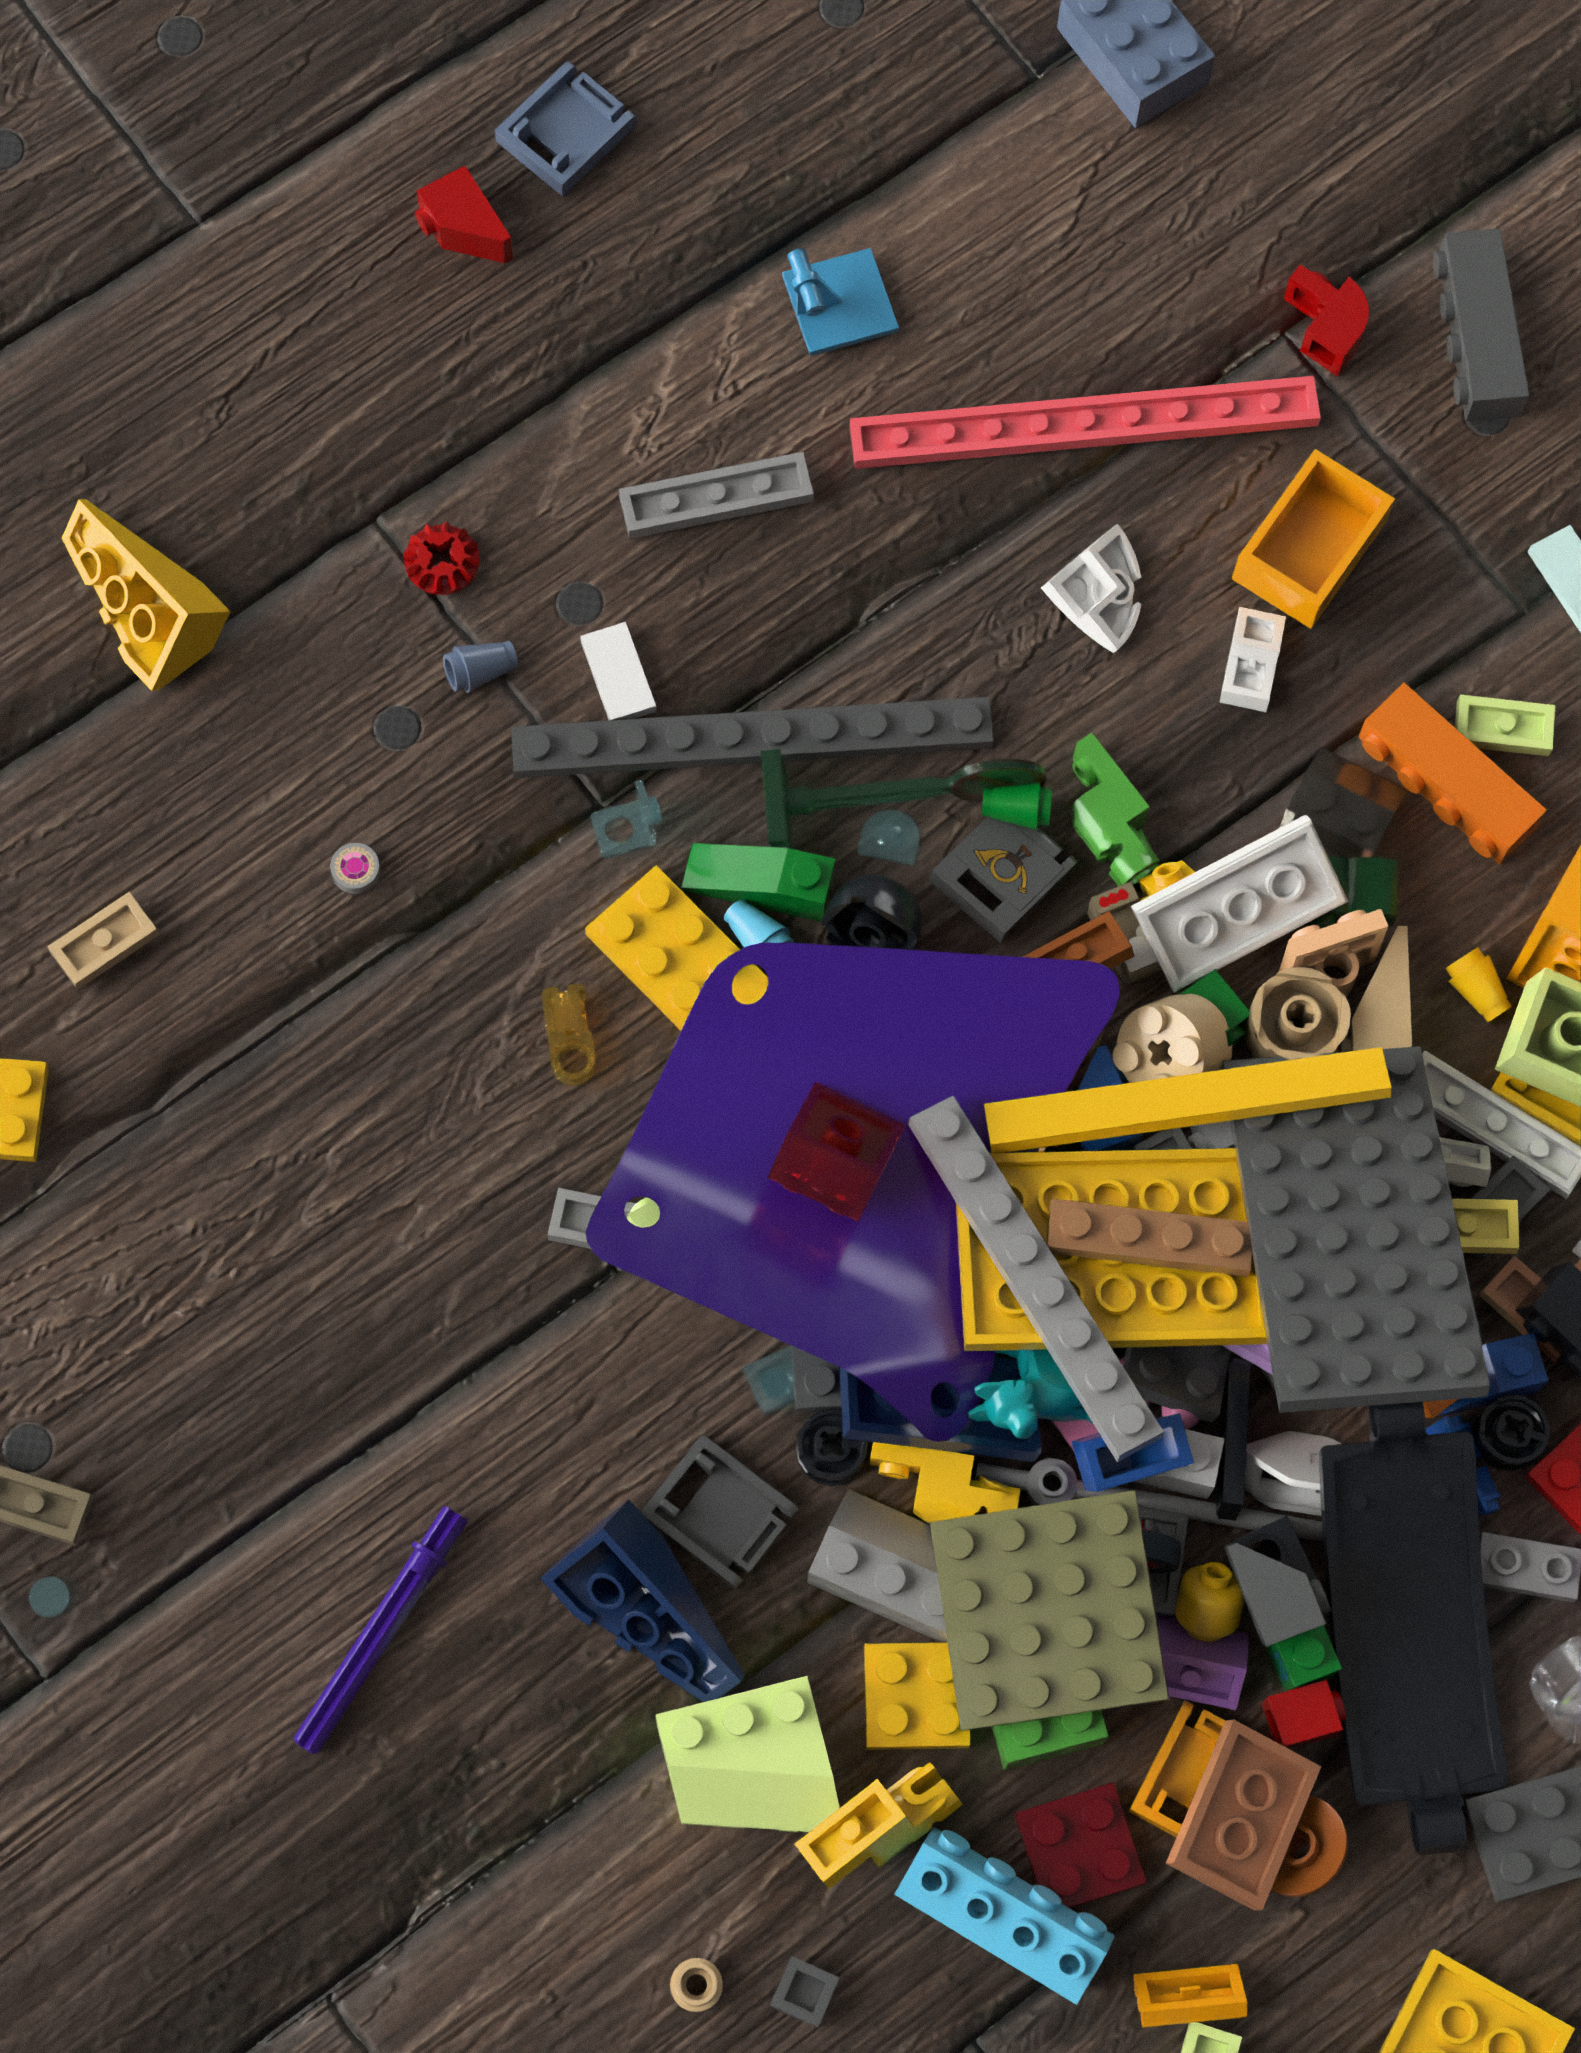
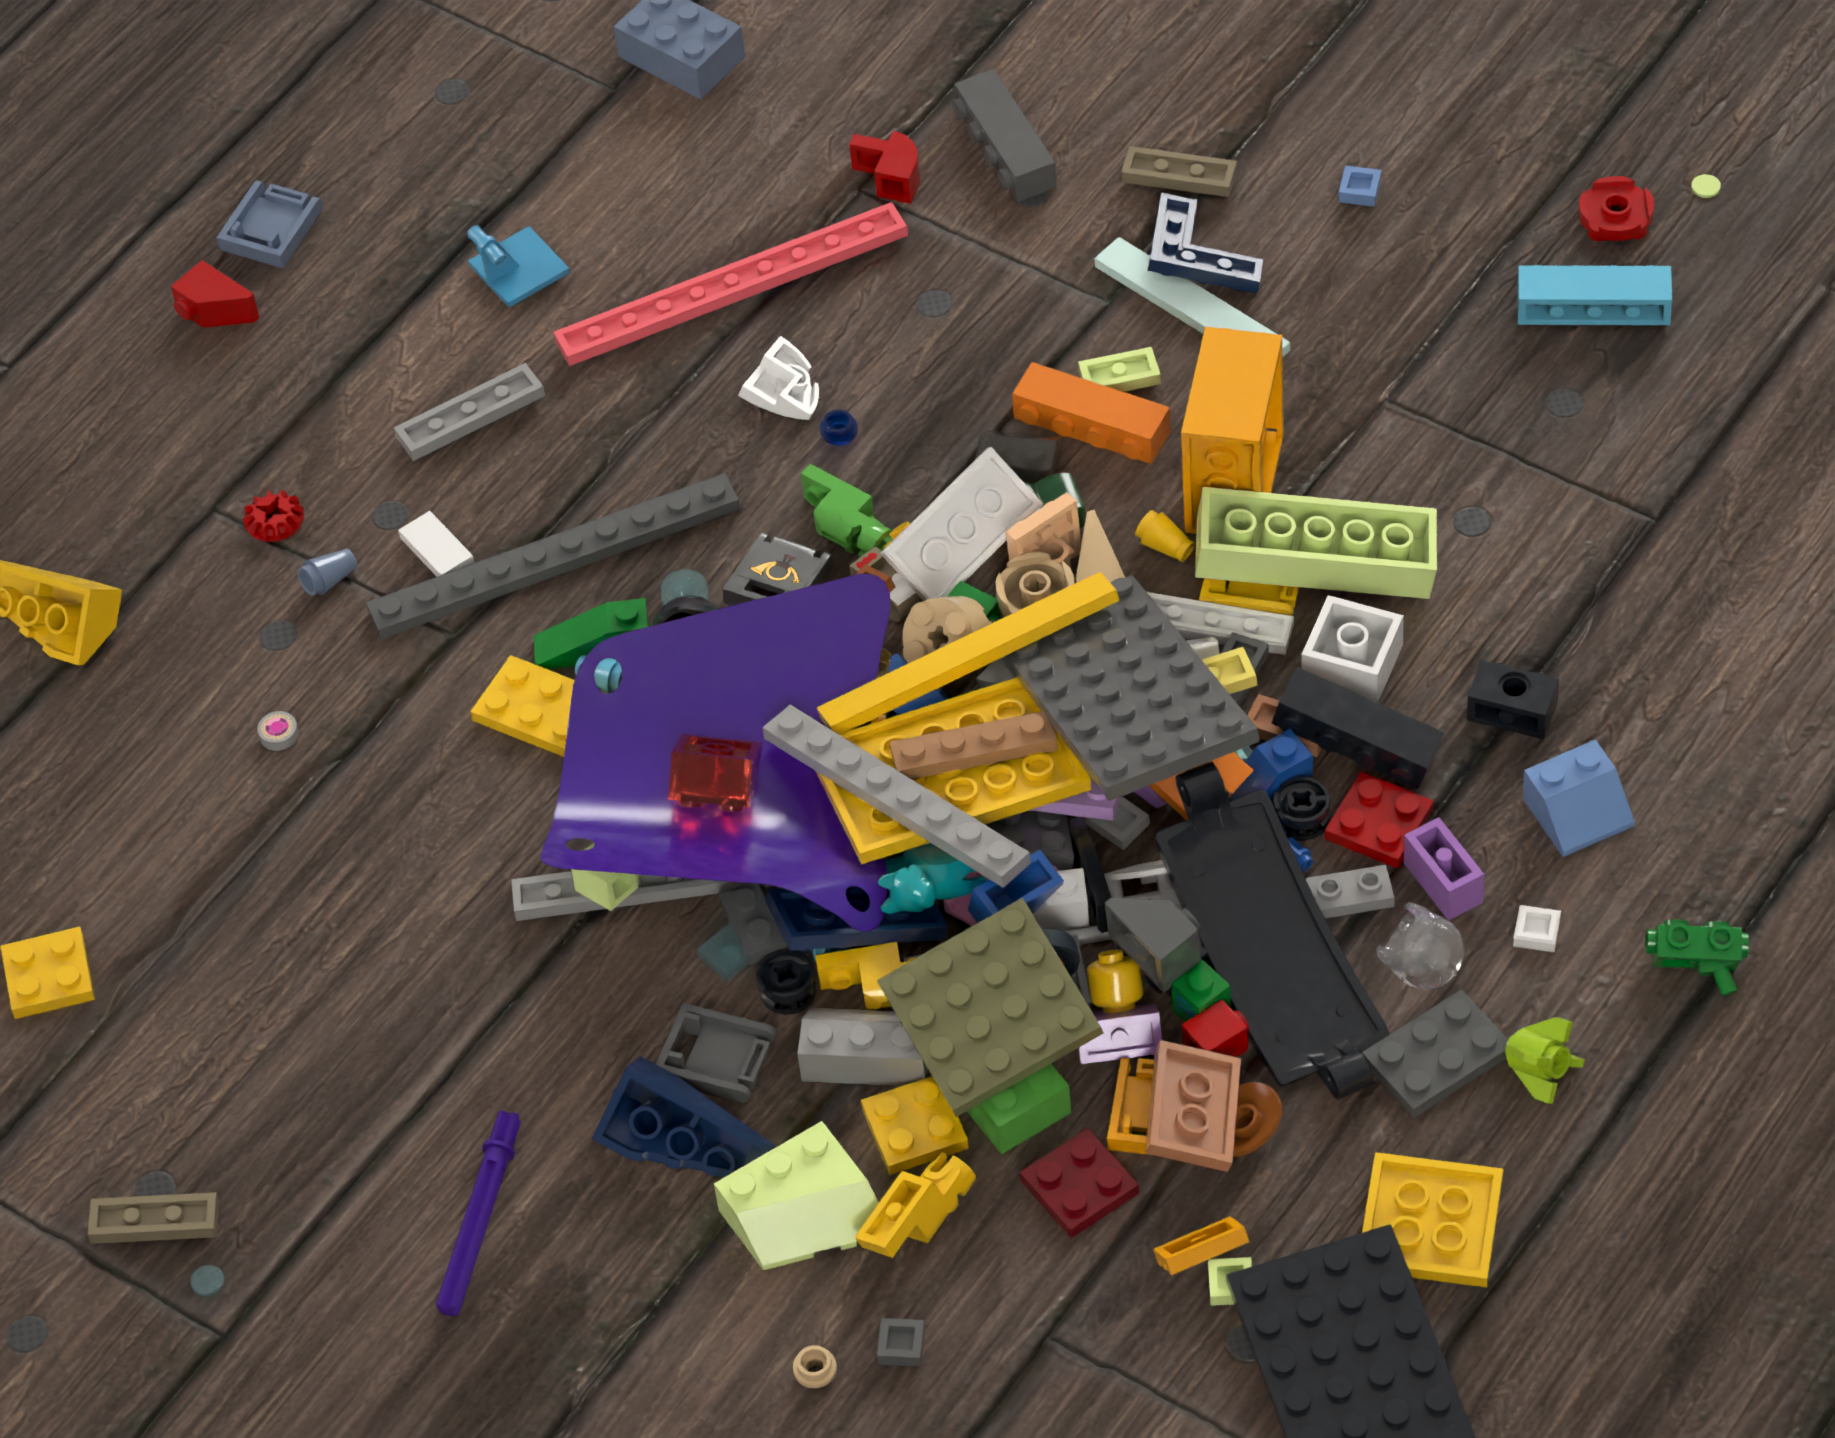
camera: 10 degrees left, 20 degrees down
(103, 940) = (97, 835): tan plate -> none
(568, 1030) = (480, 781): clear yellow piece -> none
(642, 814) = (488, 630): clear light blue bracket -> none
(966, 784) = (737, 522): clear green piece -> none
(1005, 1914) = (1035, 1233): medium azure brick -> none
(1018, 804) = (772, 526): green cone -> none
(1147, 668) = (838, 427): none -> clear blue plate
(1252, 659) = (915, 391): white slope -> none
(1313, 538) = (929, 298): light orange piece -> none

